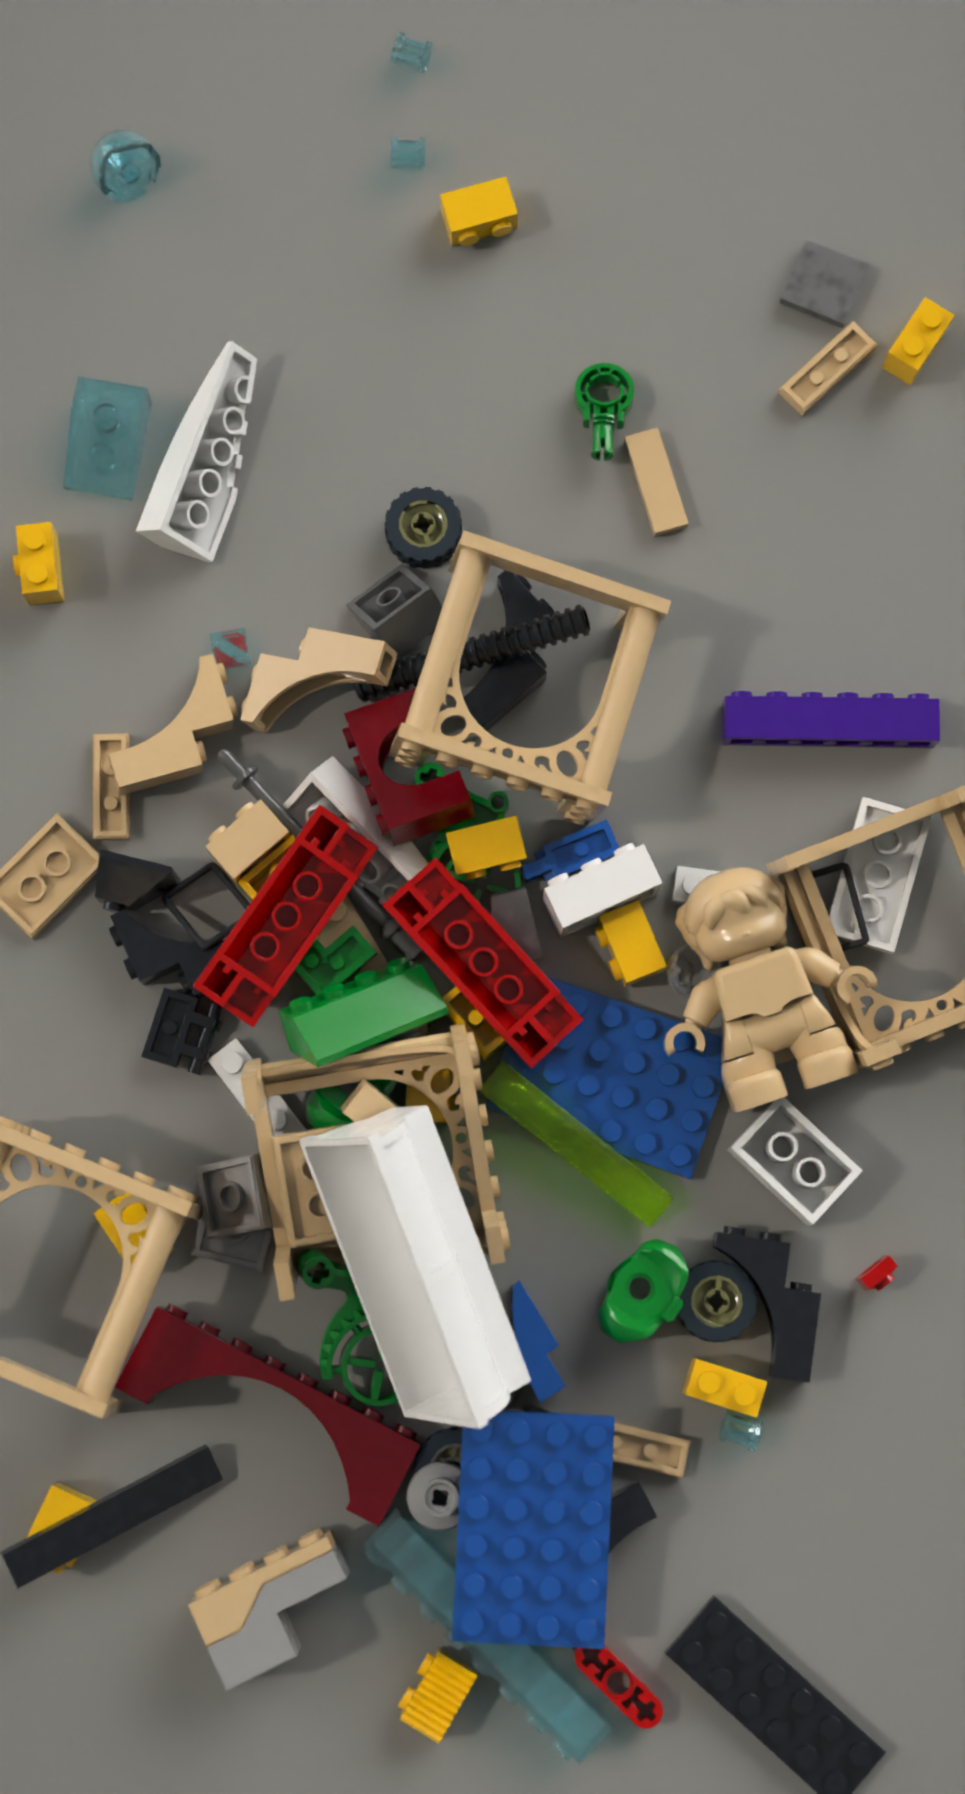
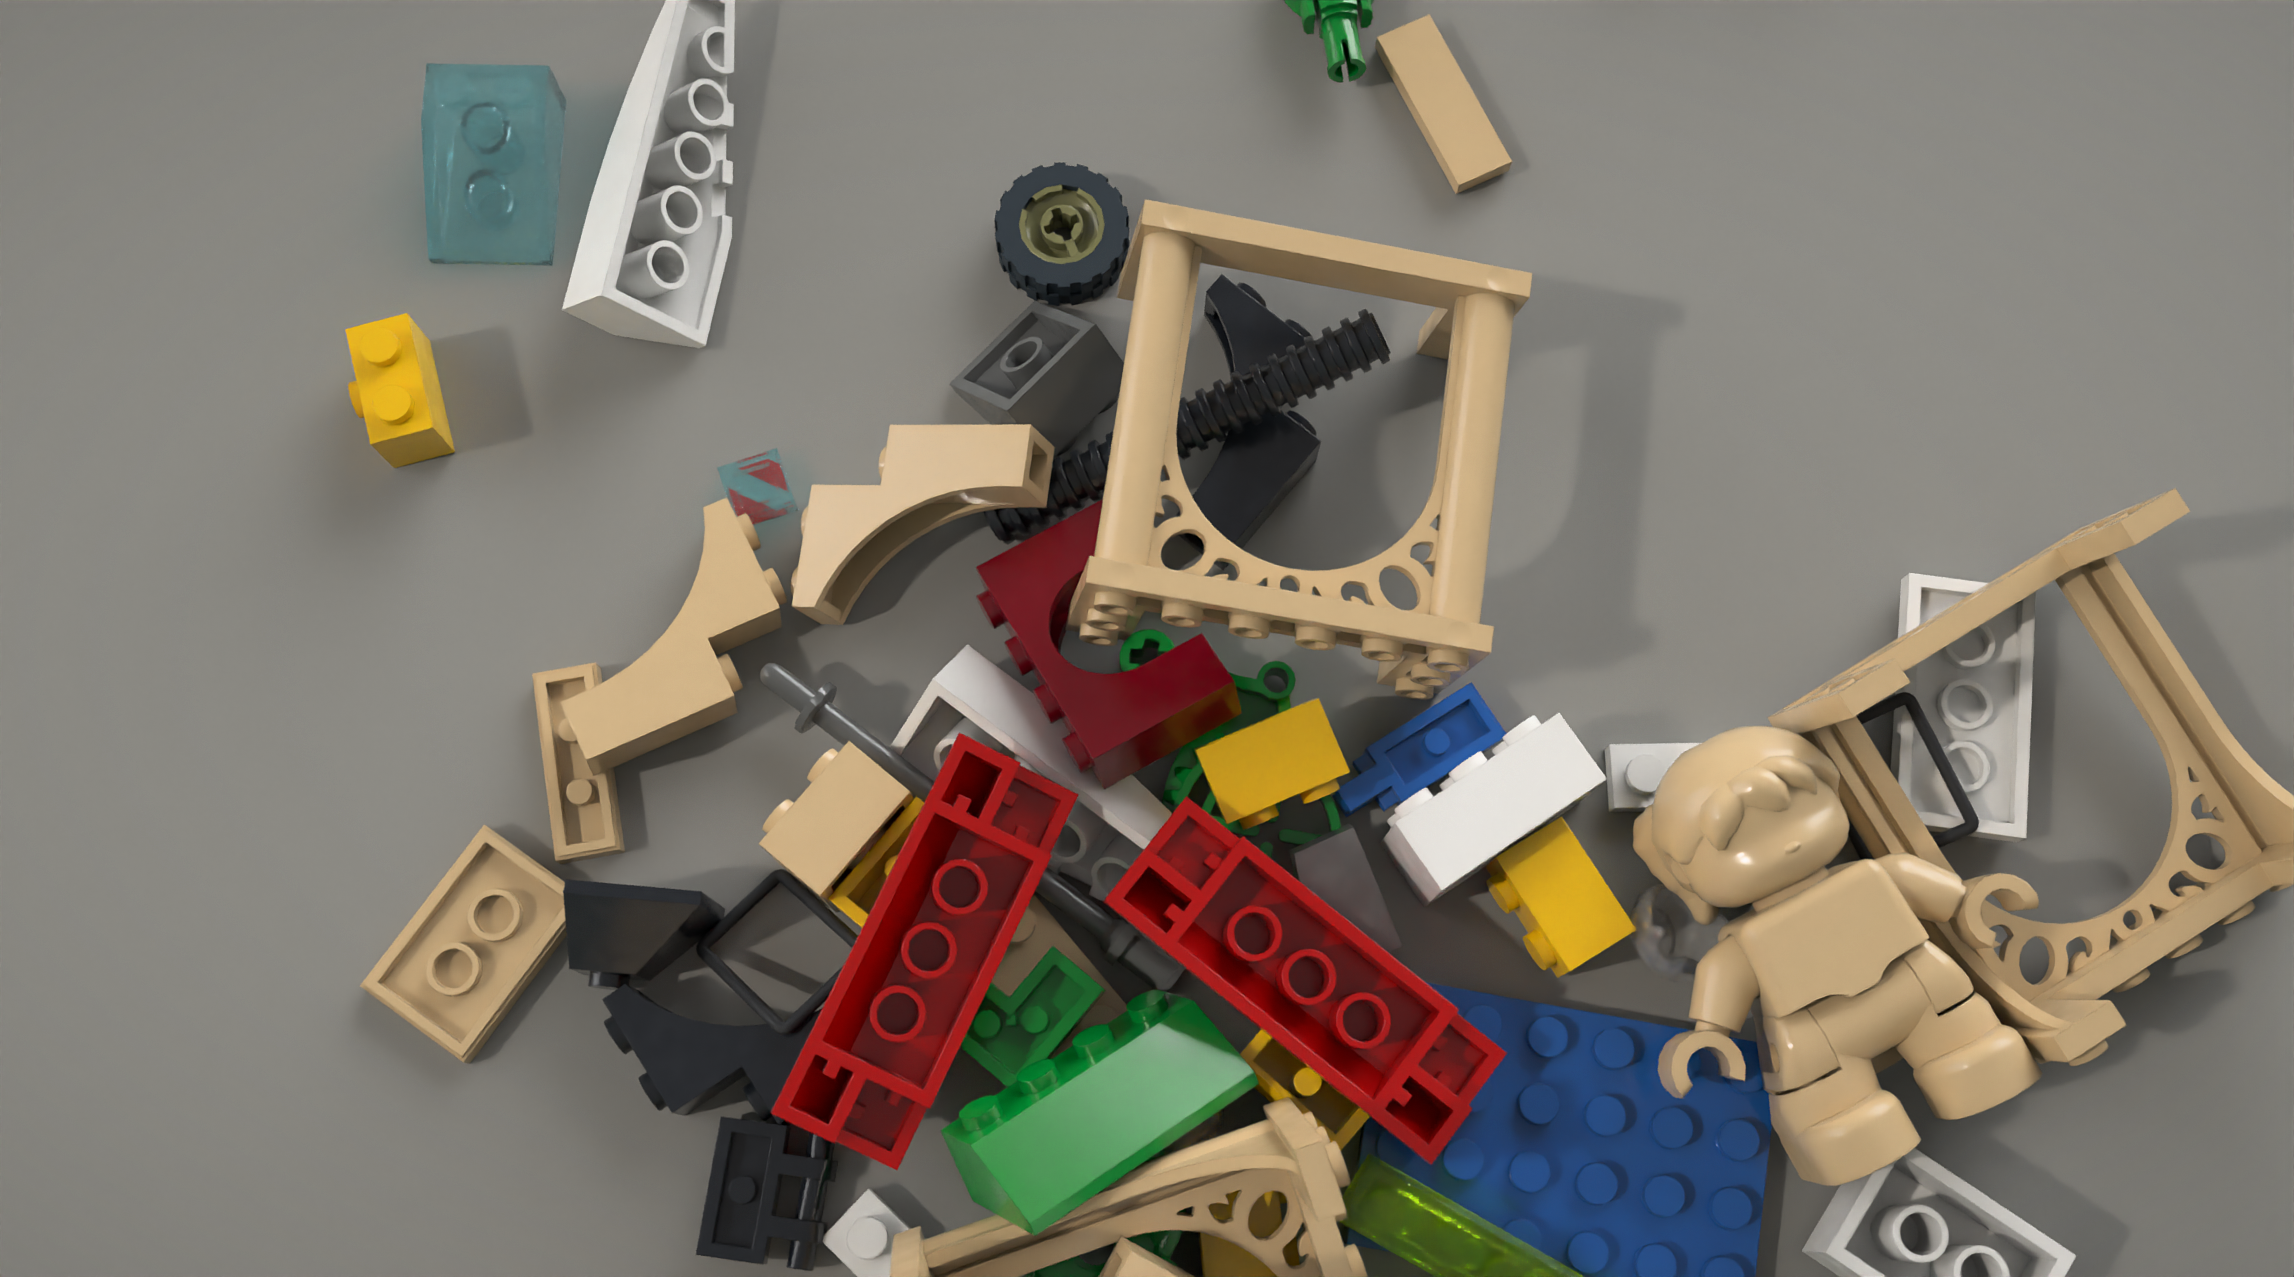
camera: 10 degrees left, 5 degrees down
(830, 720) = (1824, 451): dark purple brick -> none

